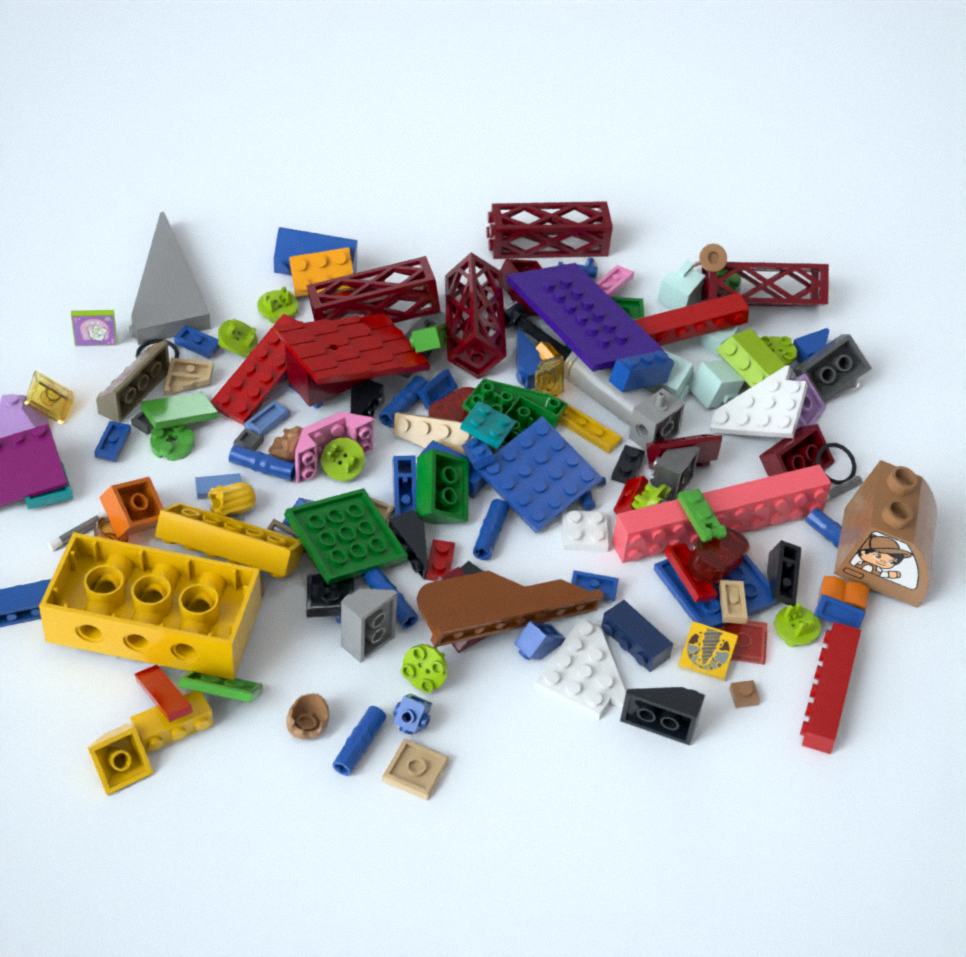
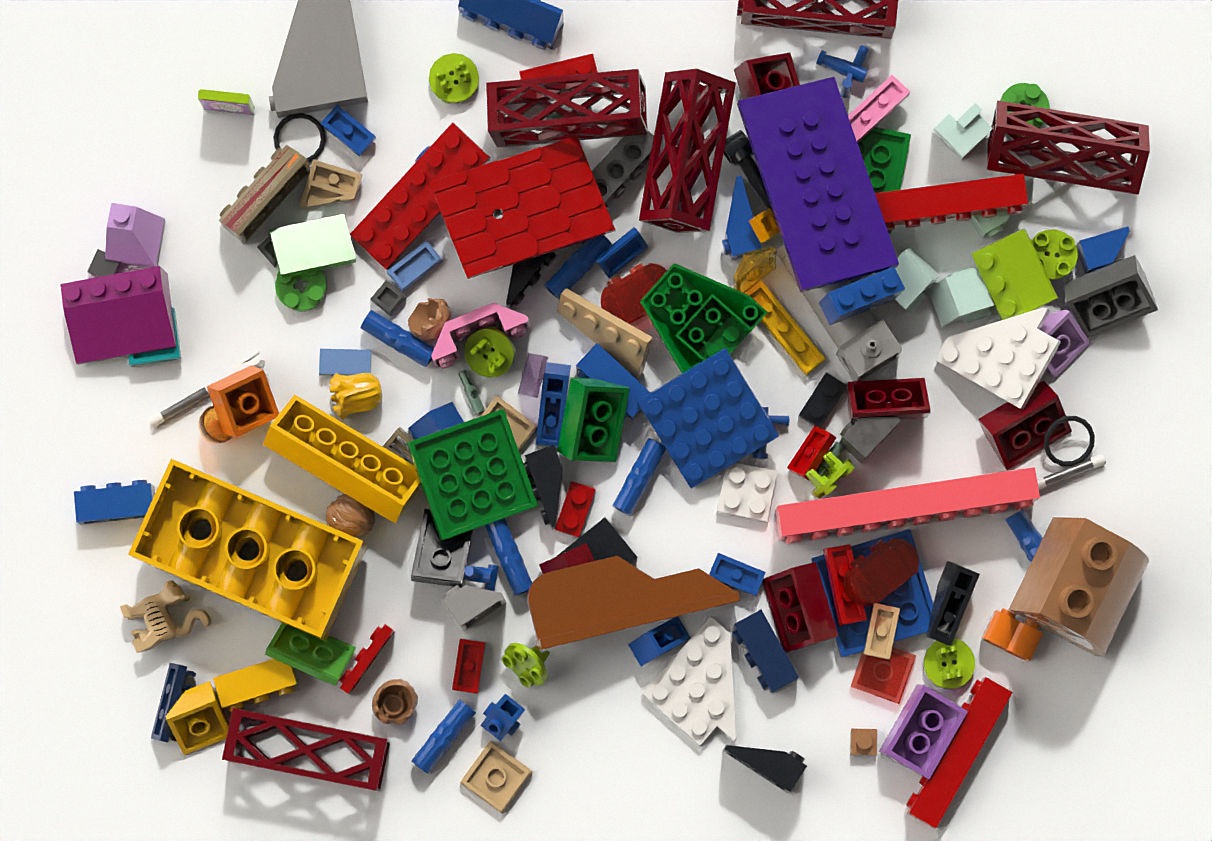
camera: 15 degrees right, 35 degrees up
(49, 397) = (166, 204): clear yellow slope -> none
(71, 685) = (158, 620): none -> tan animal
(92, 731) = (170, 695): none -> dark blue plate
(112, 441) = (233, 278): blue plate -> none
(163, 693) = (249, 654): red tile -> none
(203, 763) = (238, 735): none -> dark red piece
(237, 337) = (386, 128): lime plate -> none
(274, 689) = (366, 658): none -> red plate
(320, 267) = (514, 42): light orange plate -> none
(329, 490) = (469, 389): none -> sand green pin
(371, 683) = (468, 666): none -> red plate
(383, 467) = (532, 375): none -> clear purple piece
(429, 337) = (623, 190): bright green slope -> none
(478, 453) = (642, 381): blue plate -> none
(488, 425) = (661, 345): teal plate -> none
(657, 596) = (799, 607): none -> dark red slope
(701, 515) = (870, 527): bright green plate -> none
(708, 651) = (838, 684): tile -> none
(712, 258) = (999, 125): medium nougat piece -> none
(794, 670) = (923, 731): none -> medium lavender slope
(838, 611) = (998, 660): blue tile -> none

